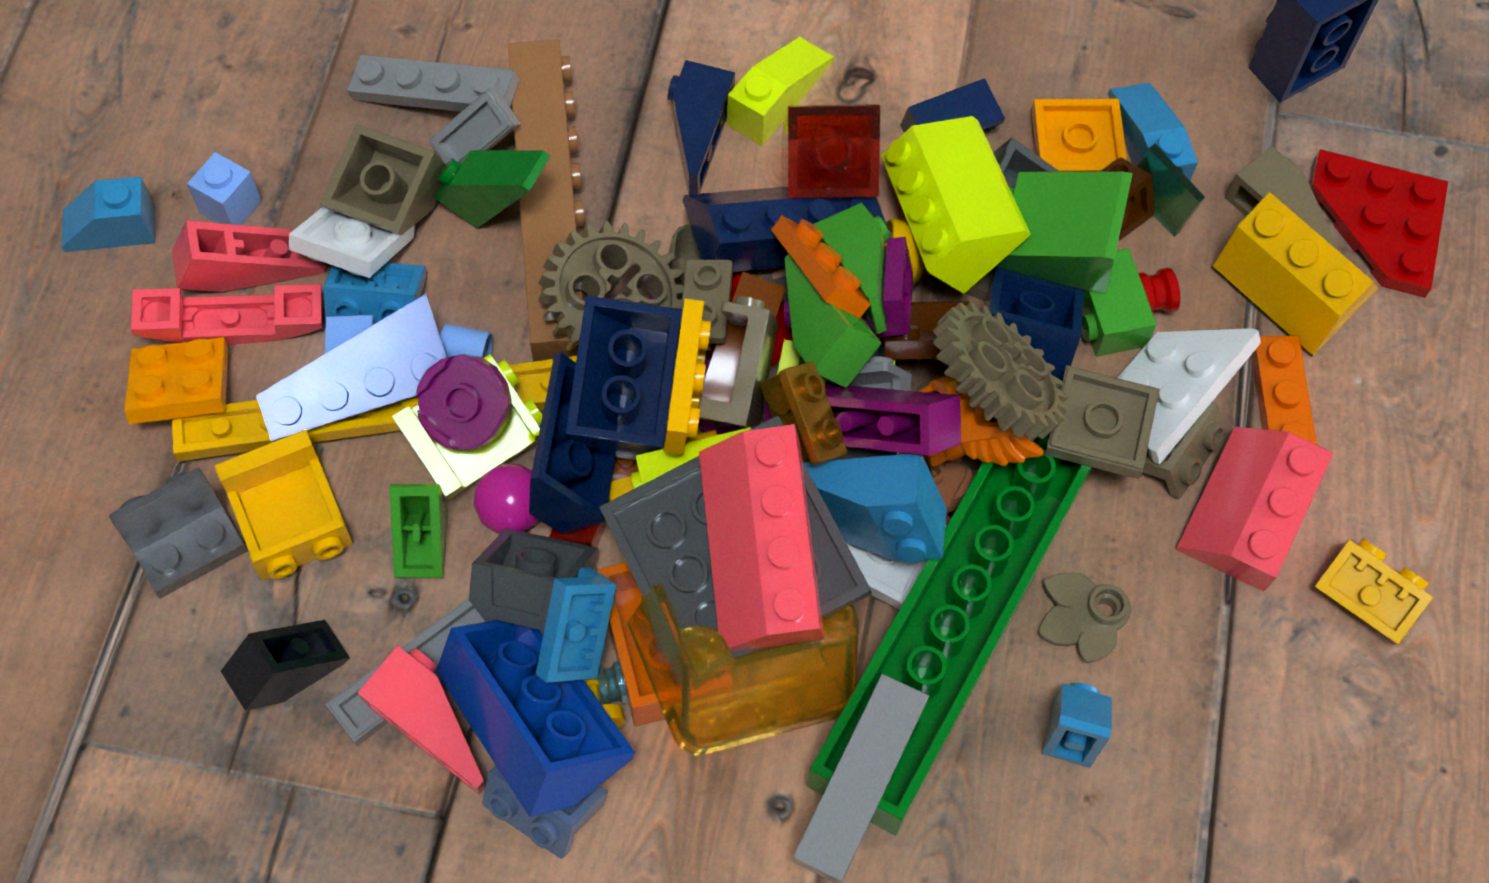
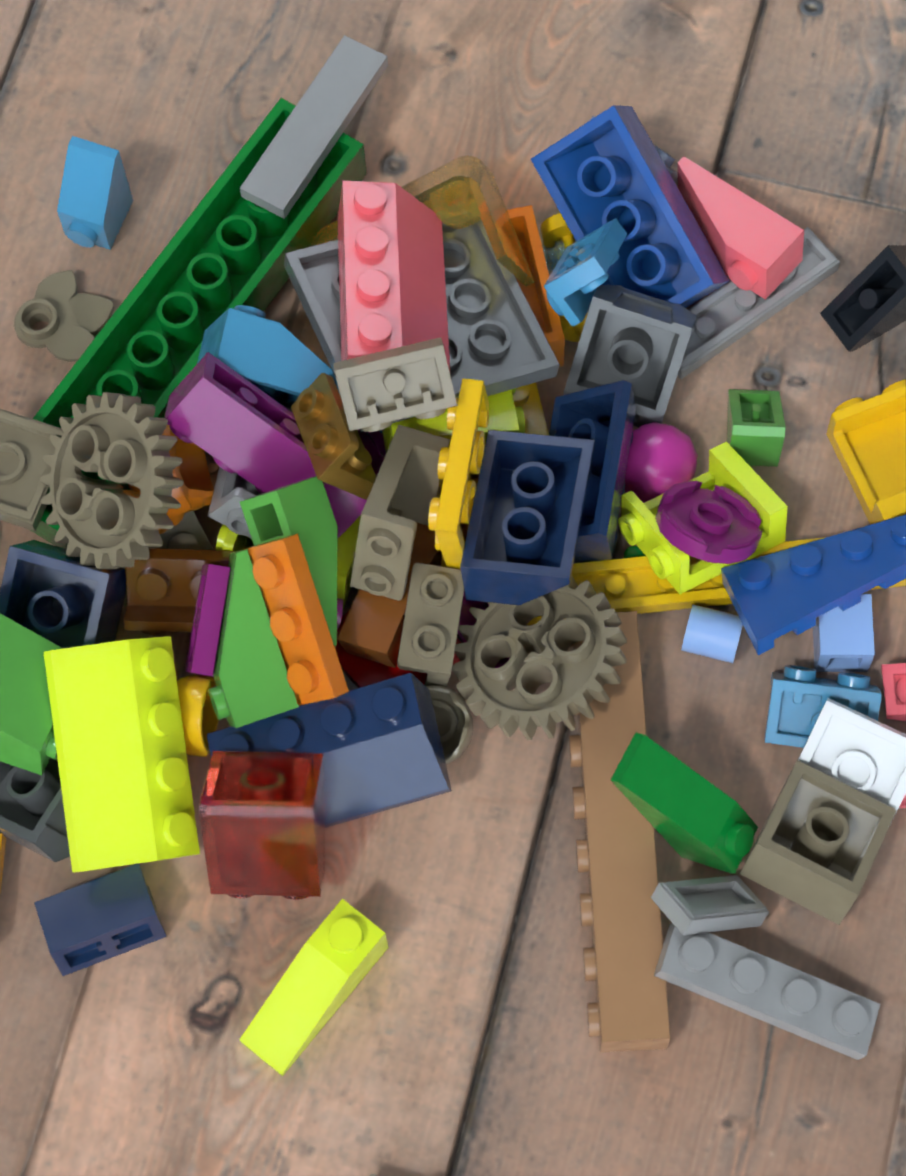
camera: 170 degrees left, 5 degrees up
(699, 116) = (421, 944): dark blue slope -> none
(746, 408) = (395, 385): none -> bracket

